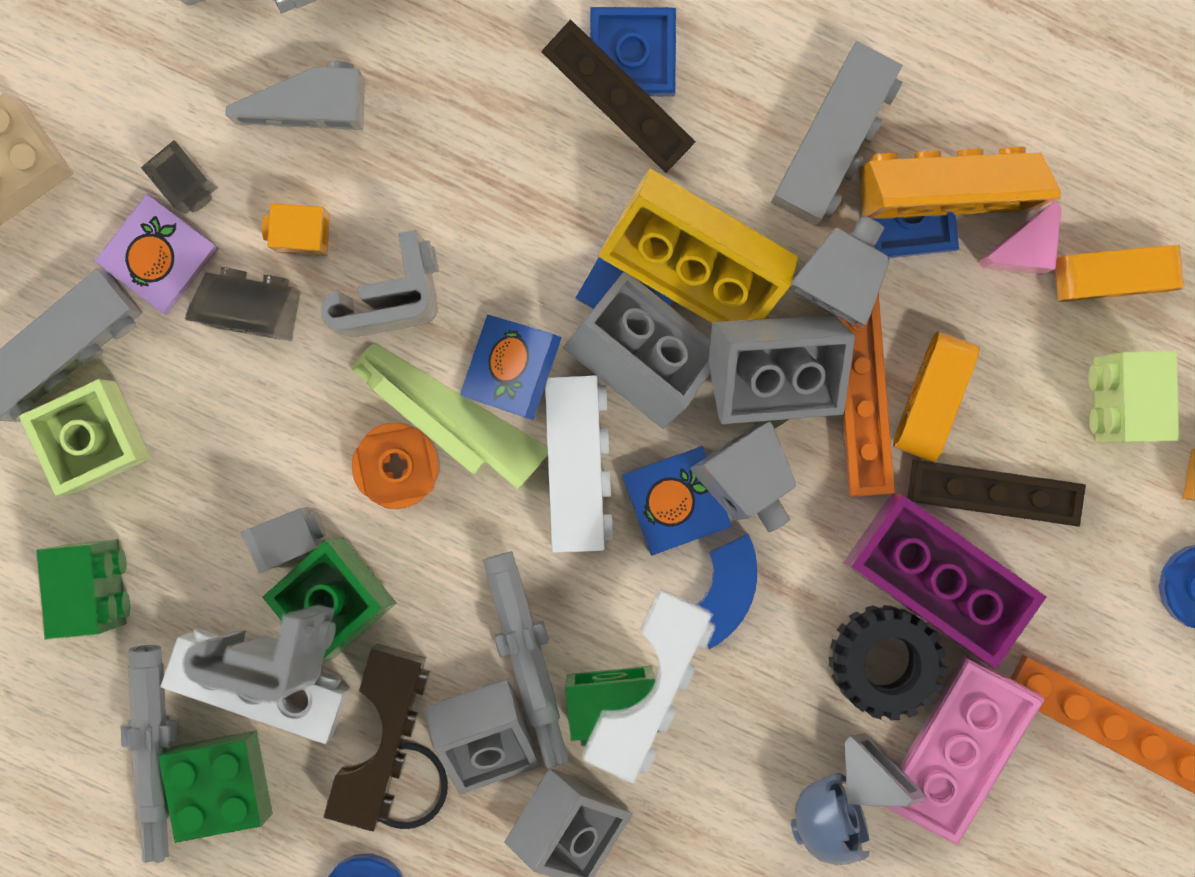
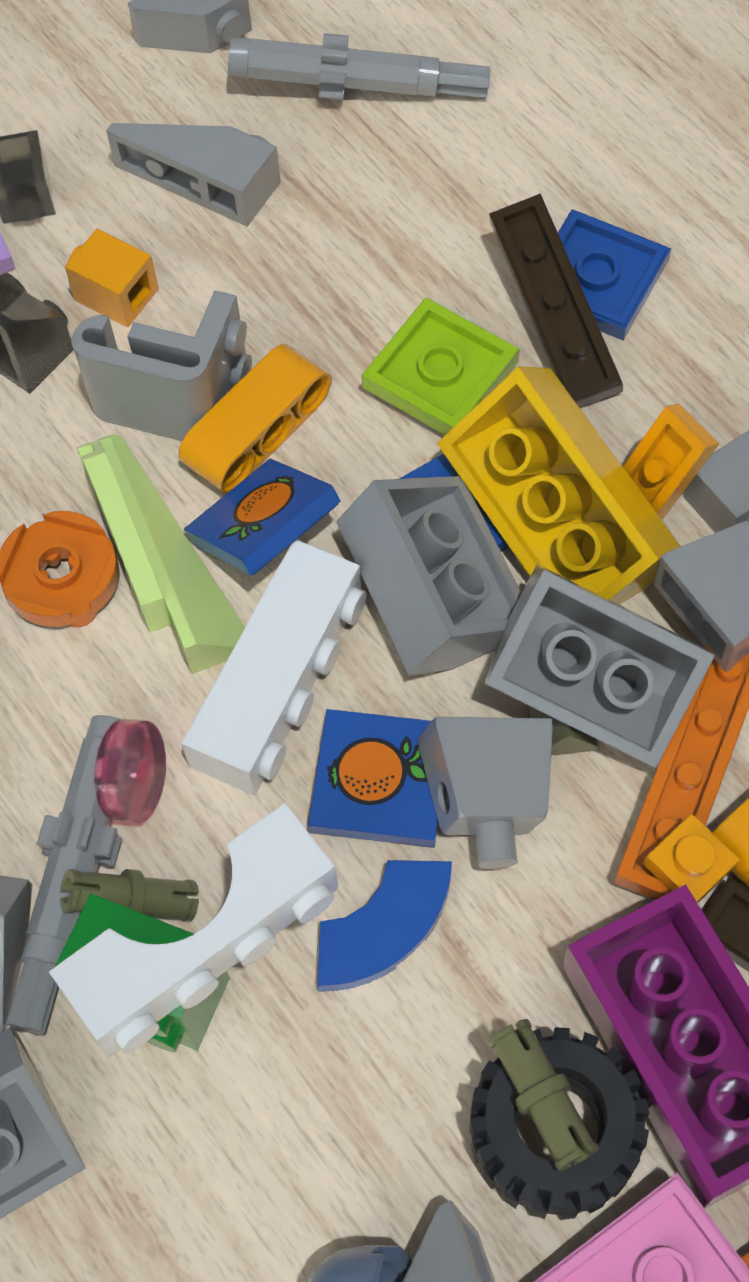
camera: 30 degrees right, 25 degrees down
(462, 290) = (254, 418): none -> light orange beam
(529, 582) = (130, 770): none -> clear pink piece
(565, 188) = (439, 366): none -> lime plate
(573, 658) = (131, 889): none -> olive pin
(759, 197) = (669, 457): none -> light orange plate
(881, 664) = (543, 1095): none -> olive pin
(893, 468) = (691, 858): none -> light orange plate

